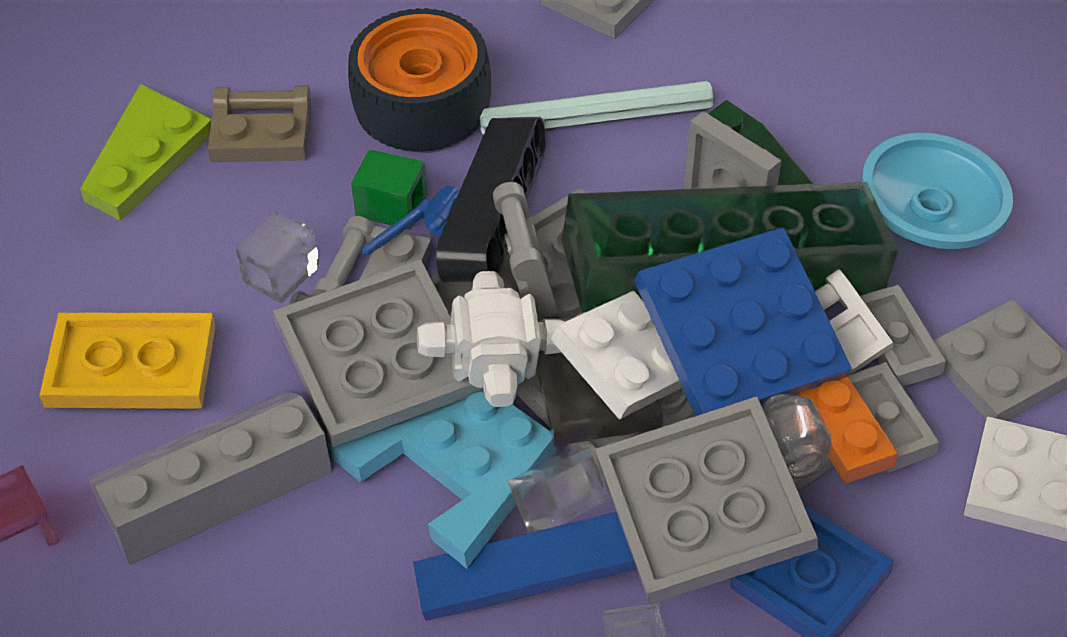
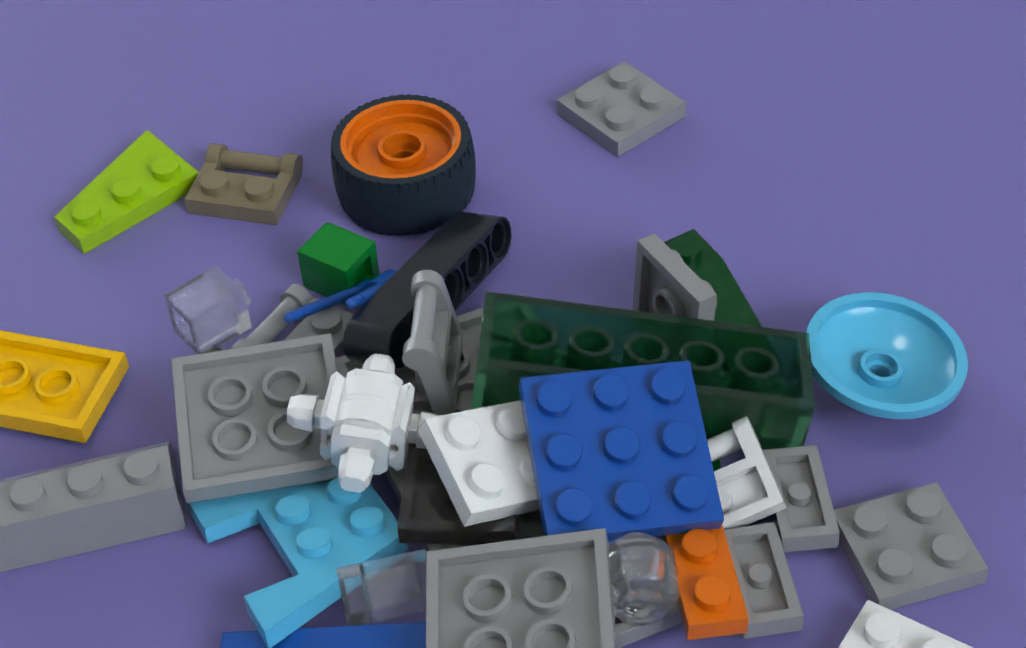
camera: 15 degrees right, 5 degrees down
(609, 106) = (586, 219): light aqua axle -> none

